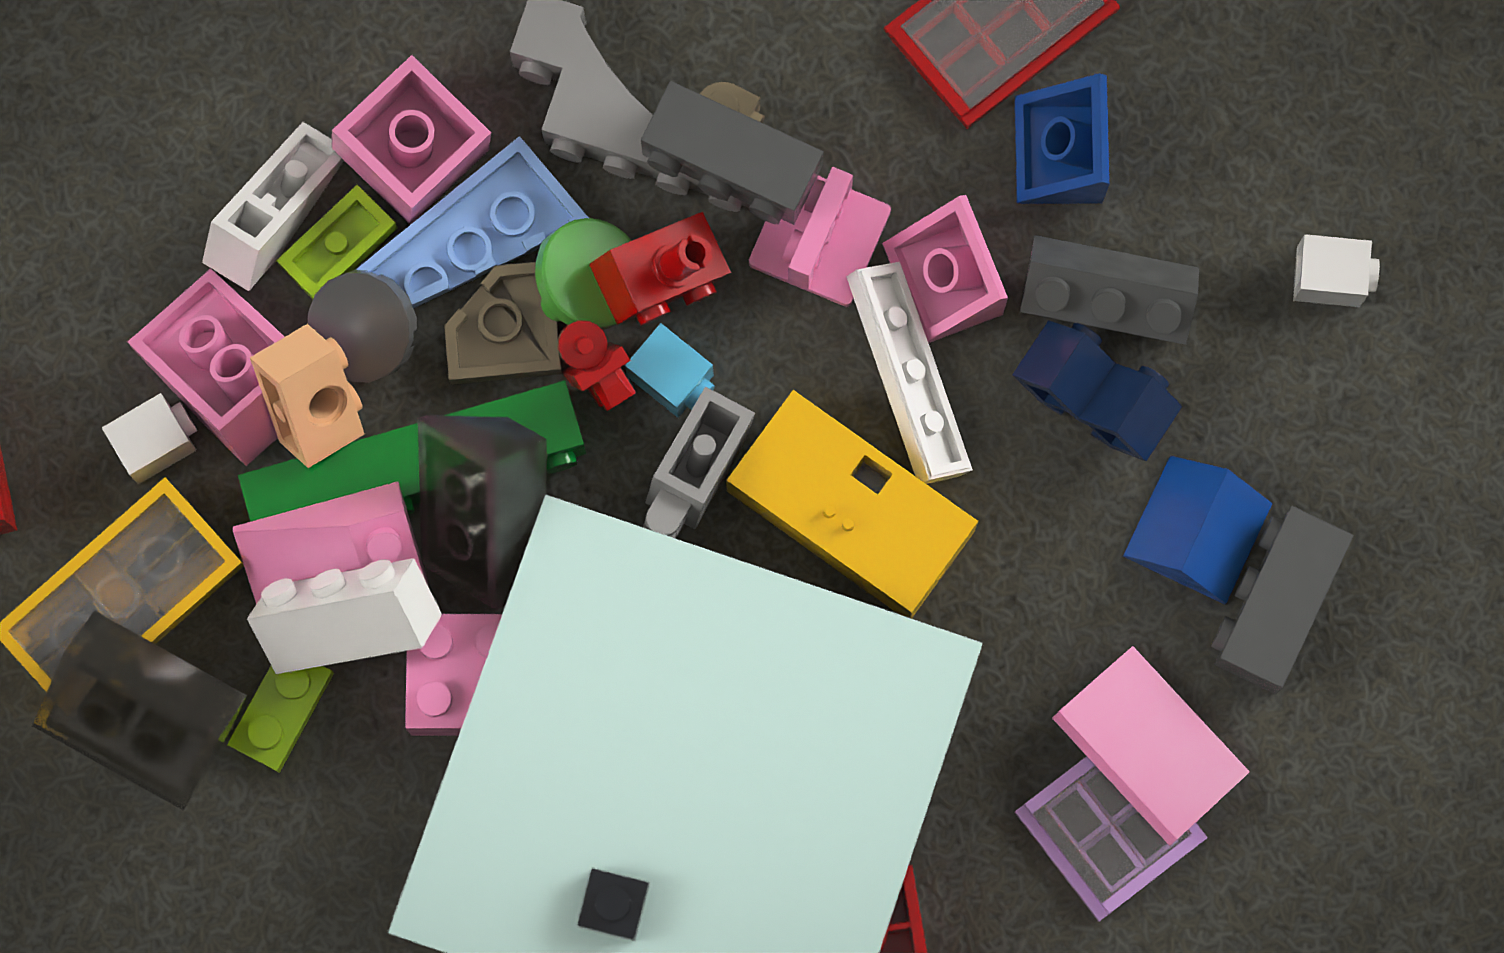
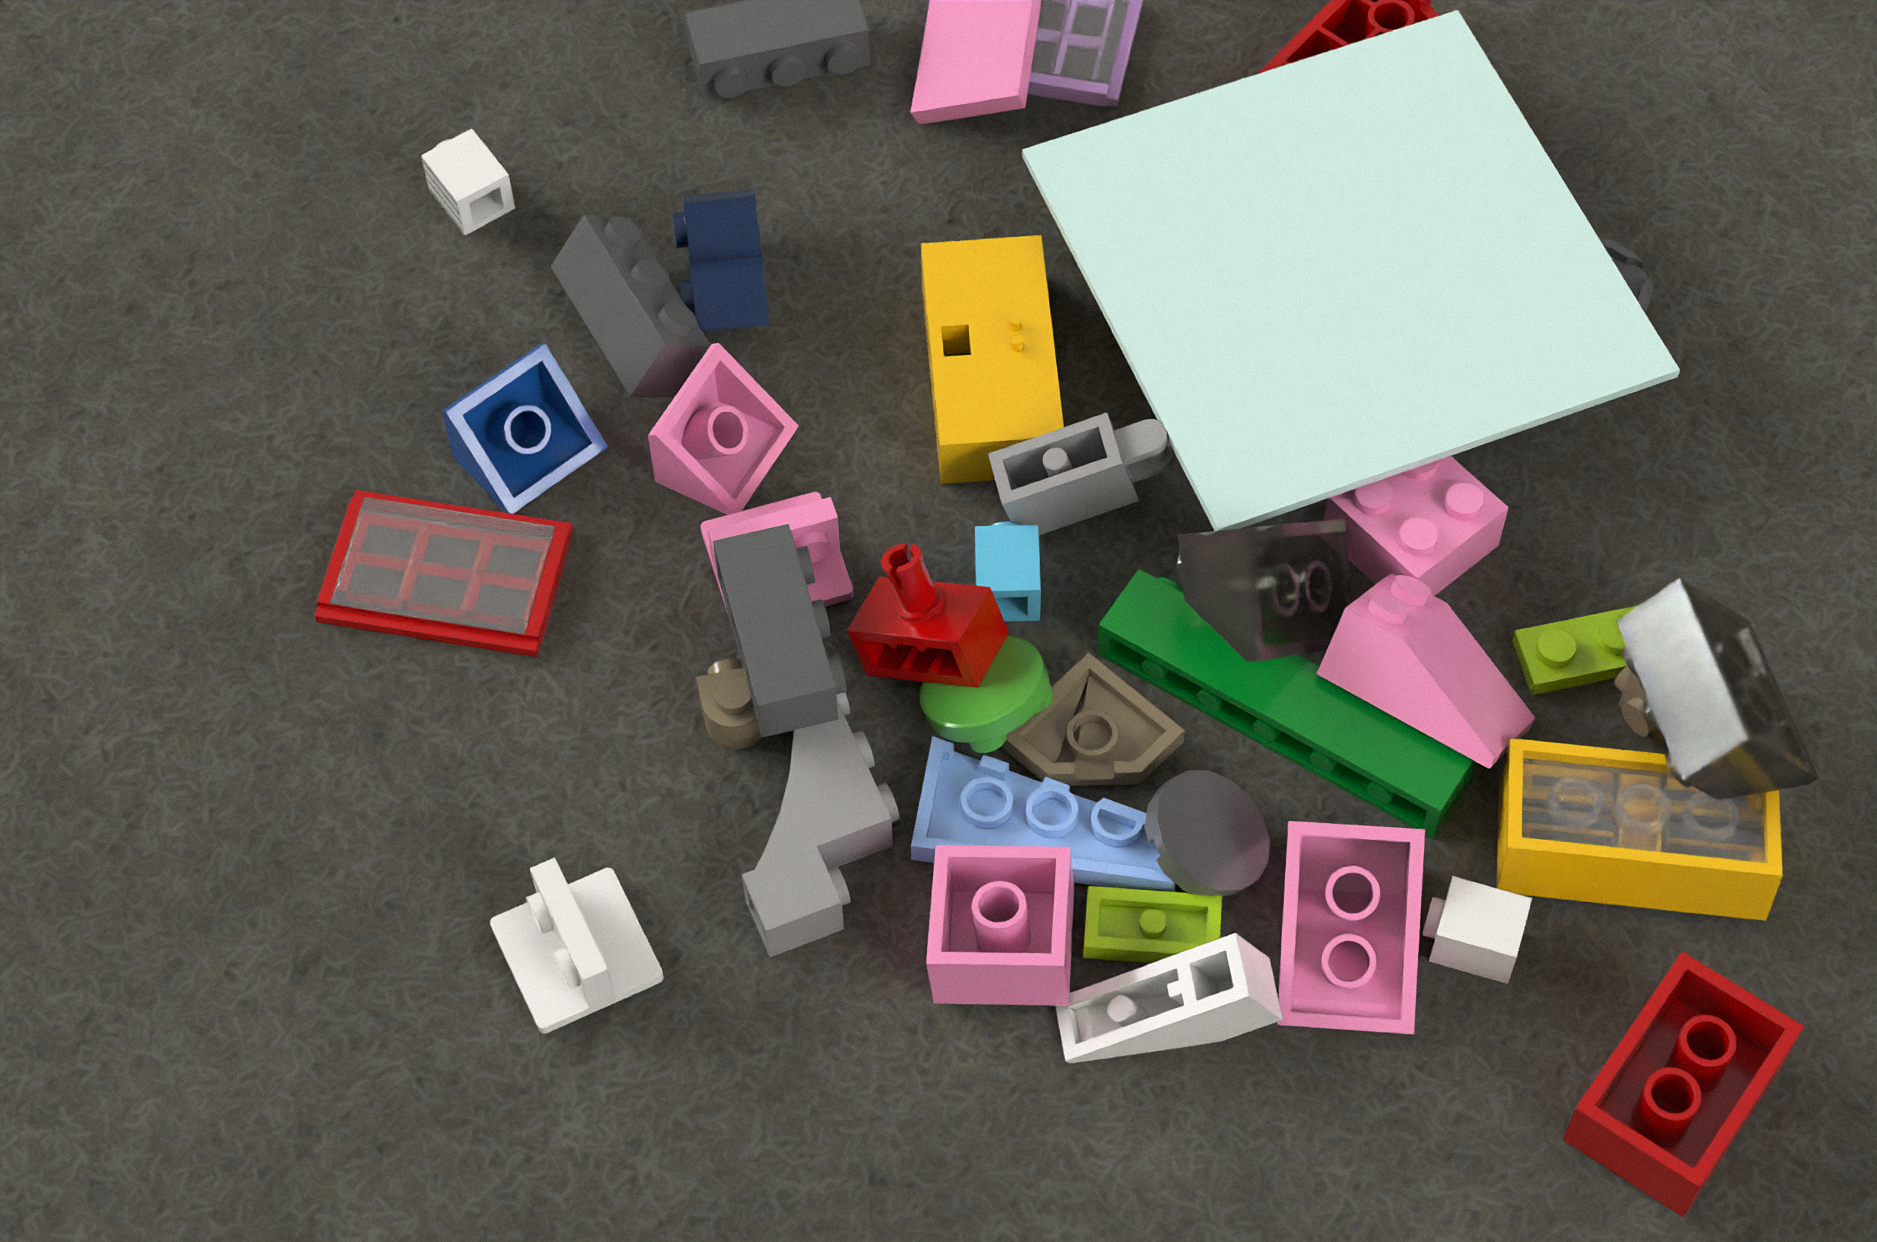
camera: 130 degrees left, 20 degrees down
(308, 394) = (1318, 786): light nougat brick -> none
(344, 615) = (1473, 607): white brick -> none
(594, 363) = (1063, 607): red hips -> none
(613, 904) = (1488, 230): black plate -> none
(909, 372) = (834, 406): white tile -> none
(1199, 527) = (775, 140): blue slope -> none

